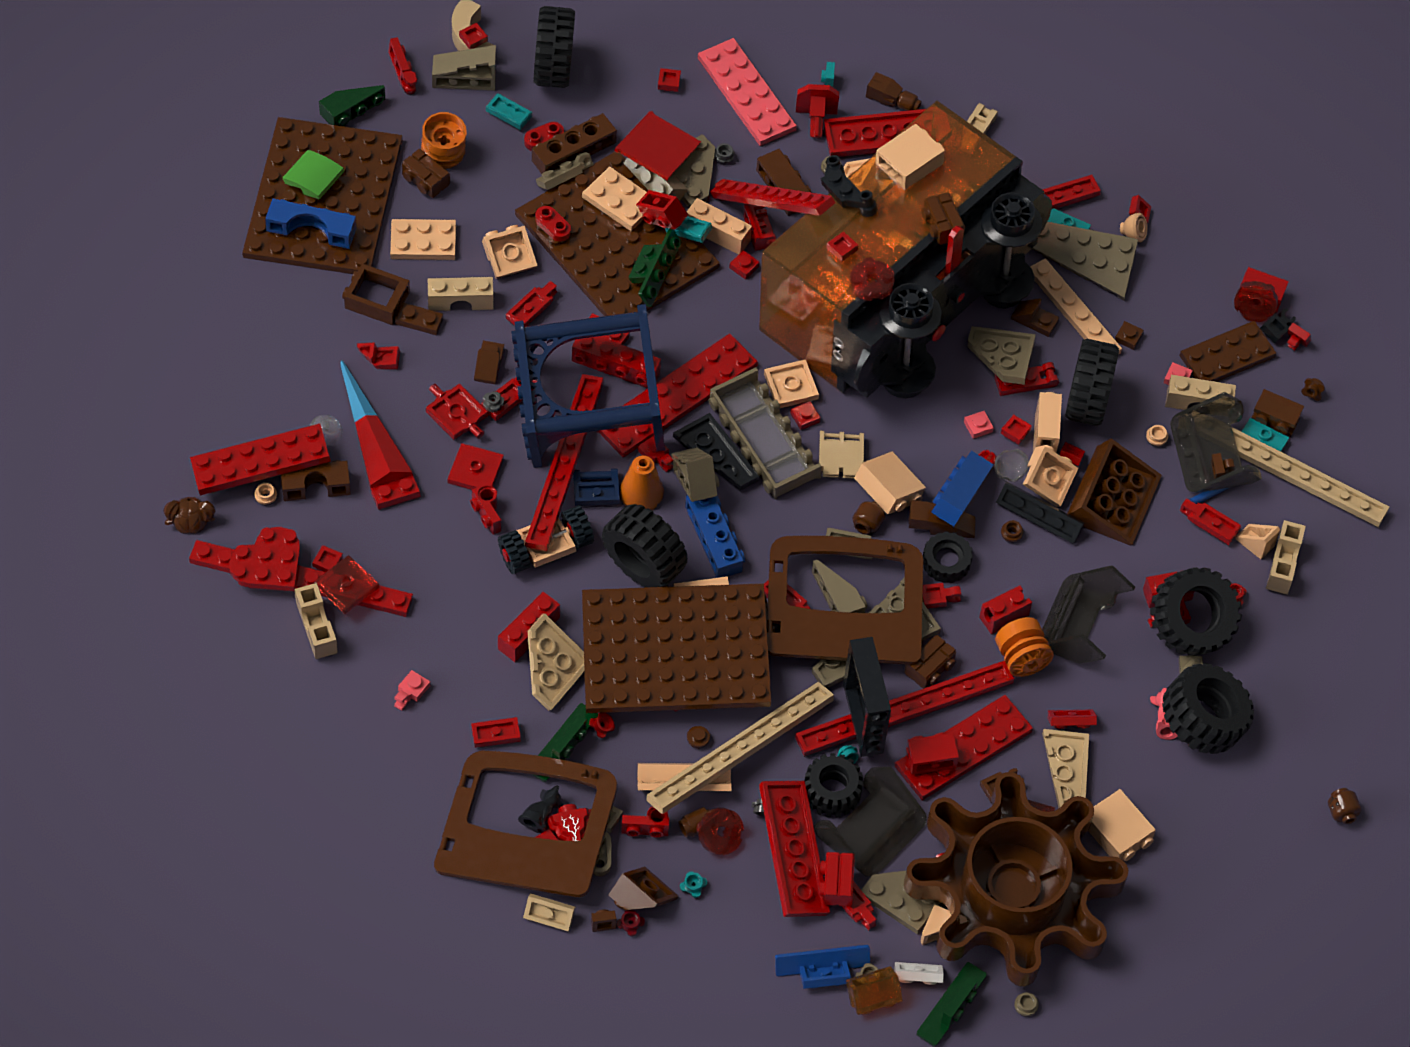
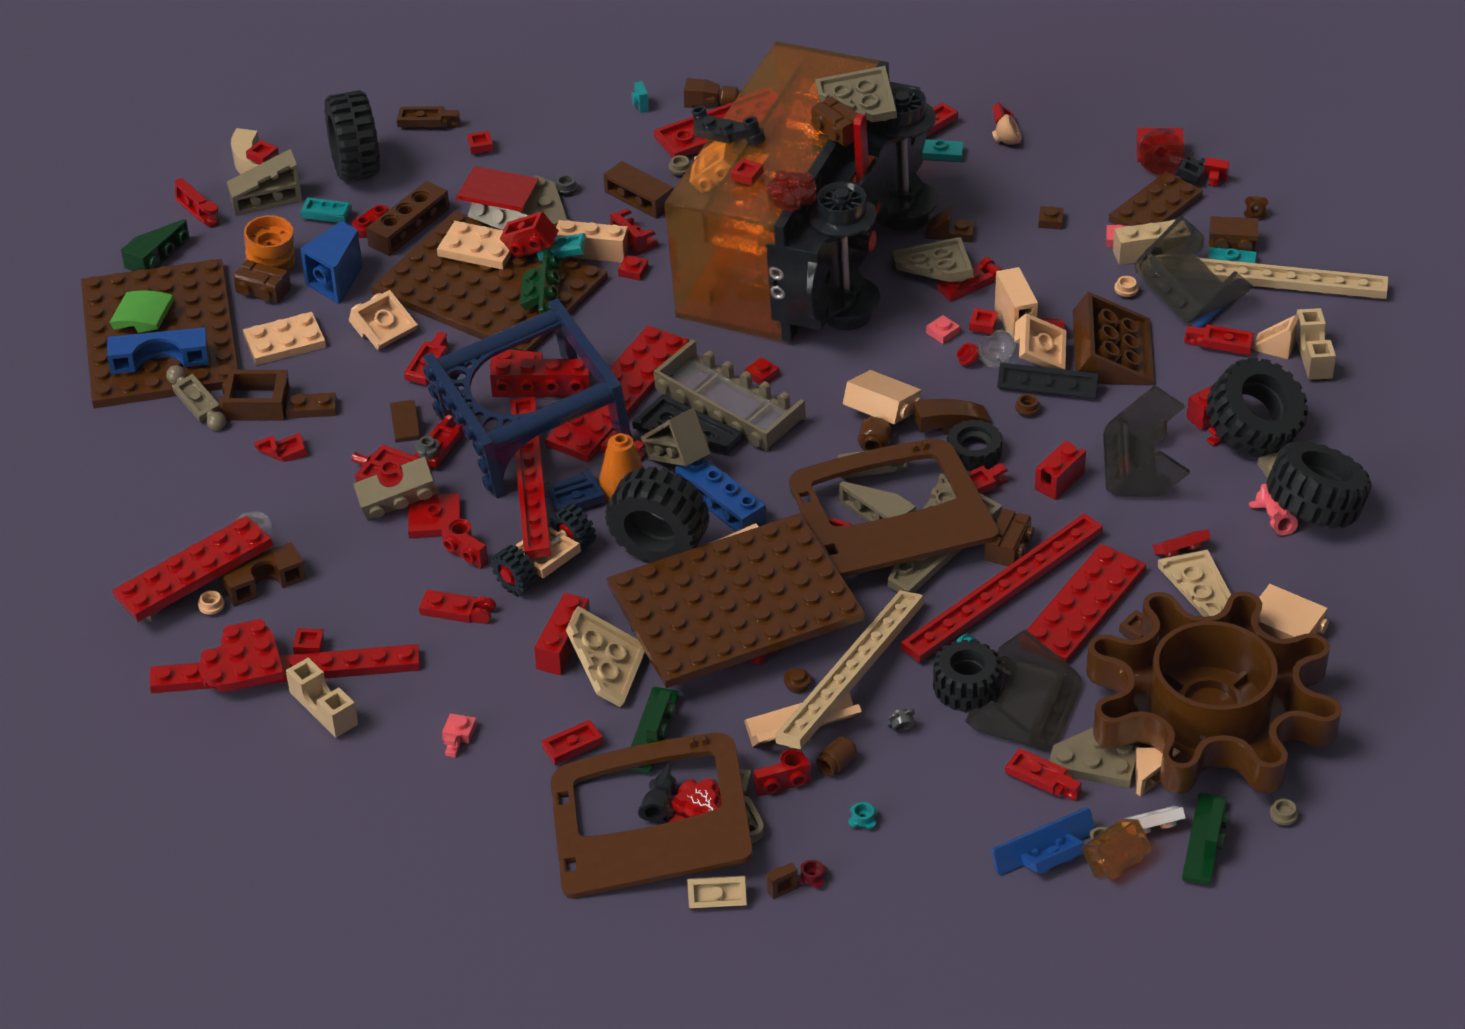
camera: 15 degrees left, 15 degrees down
(189, 514) = (133, 644): reddish brown hair -> none
(327, 280) = (196, 398): none -> dark tan plate
(346, 584) = (342, 653): clear red plate -> none
(386, 469) = (336, 543): red plate -> none
(457, 566) = (457, 607): none -> red hinge
(469, 438) = (415, 486): none -> dark tan arch
(475, 290) = (328, 371): tan arch -> none
(491, 175) = (332, 261): none -> blue slope
(551, 223) = (418, 283): red plate -> none
(565, 172) = (410, 240): dark tan hinge -> none
(606, 720) = (687, 698): red plate -> none
(634, 35) = (427, 117): none -> reddish brown hinge
(641, 890) = (807, 839): reddish brown slope -> none
(708, 828) = (856, 756): clear red plate -> none
(746, 92) = (563, 133): coral plate -> none
(772, 197) = (645, 176): red plate -> none
(791, 383) = (736, 346): light nougat plate -> none
(793, 848) = (958, 744): red plate -> none
(817, 101) = (641, 115): red piece -> none
(838, 879) = (1021, 755): red brick -> none
(840, 454) = (817, 392): tan plate -> none
(866, 697) = (953, 525): black window -> none
(910, 156) = (775, 85): light nougat brick -> none
(932, 753) = (1058, 611): red brick -> none
(961, 488) = (959, 377): blue brick -> none
(977, 193) = (862, 91): none -> dark tan plate
(1024, 647) = (1099, 491): orange wheel -> none
(1070, 304) = (991, 214): light nougat plate -> none
(1090, 254) = (977, 163): dark tan wing -> none
(1092, 382) = (1044, 248): black tyre -> none
(1221, 467) = (1206, 286): reddish brown tile -> none

